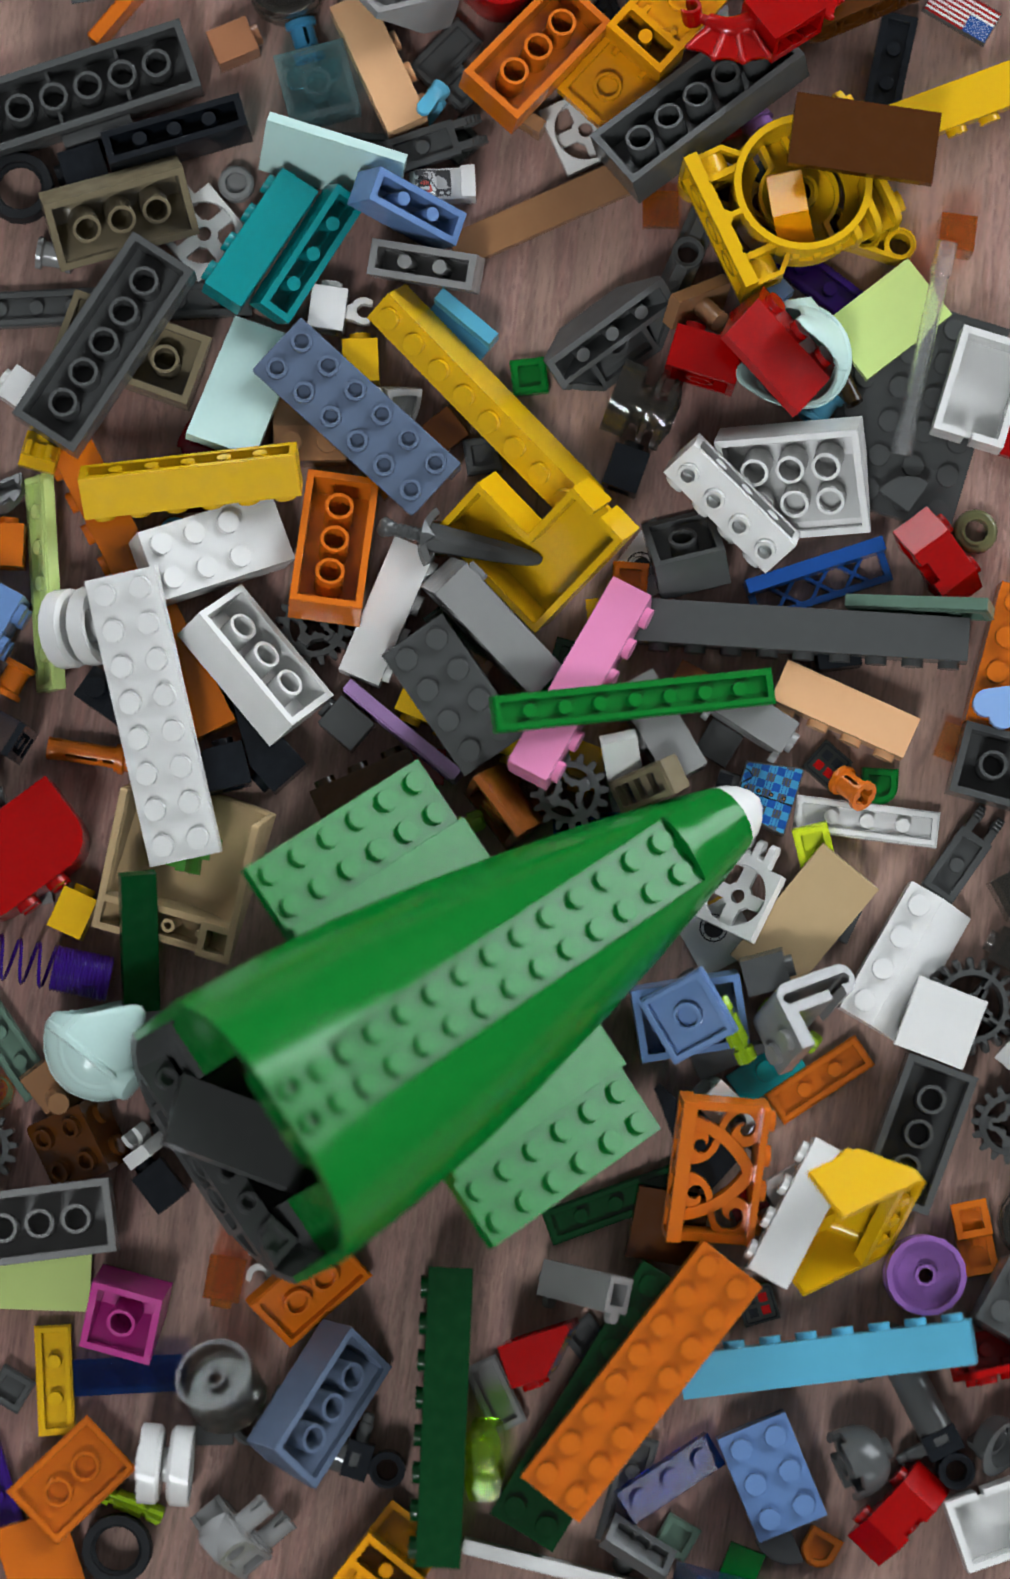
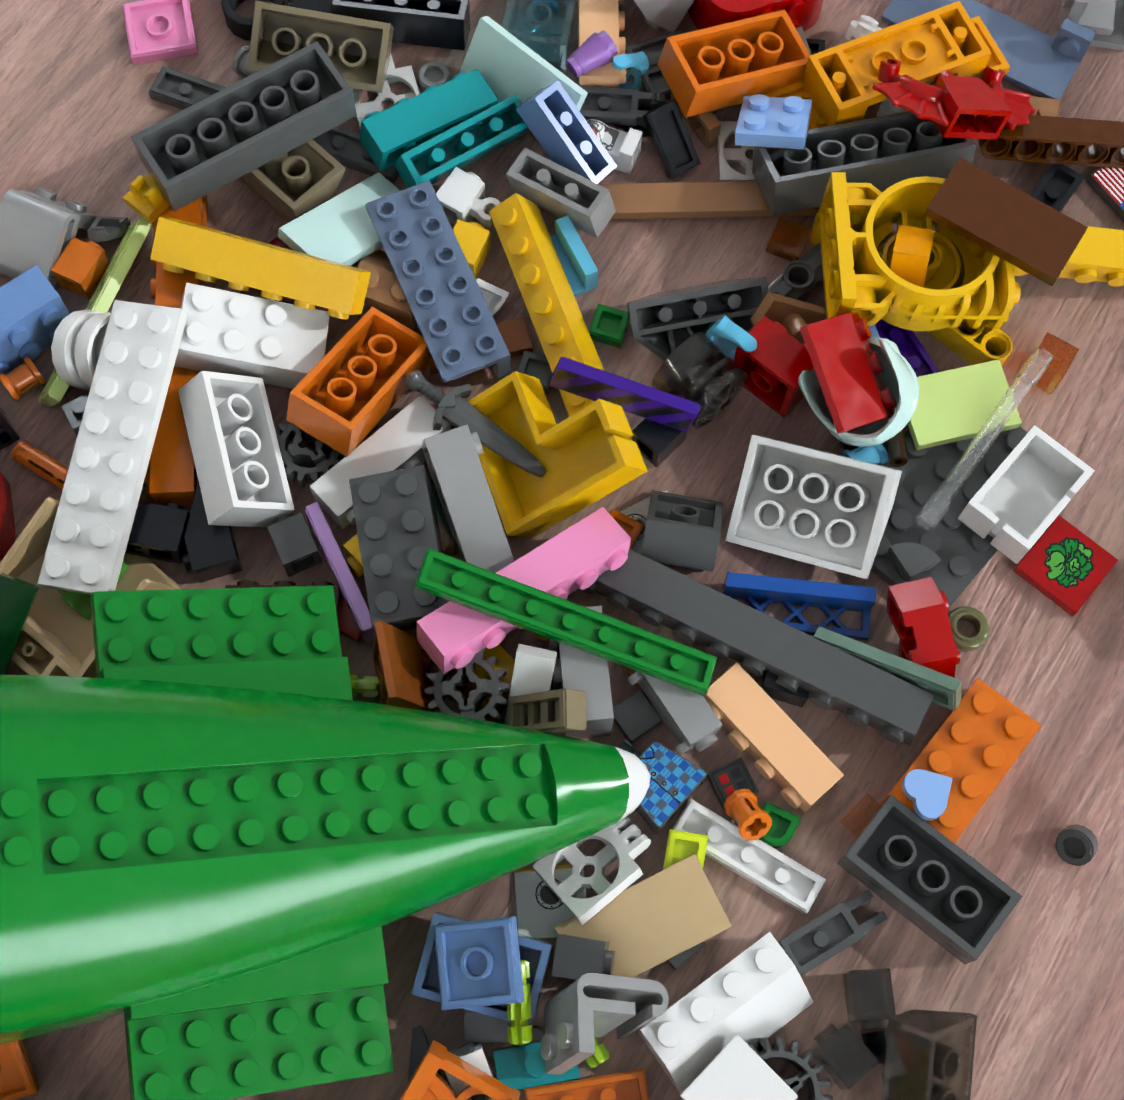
camera: 25 degrees right, 15 degrees down
(392, 109) = (592, 54): none -> medium lavender cone
(504, 156) = (671, 139): none -> black tile
(584, 458) = (631, 395): none -> dark purple tile
(600, 107) = (773, 122): none -> light blue plate
(650, 353) = (726, 332): none -> medium azure cap
(731, 504) = (744, 497): white brick -> none

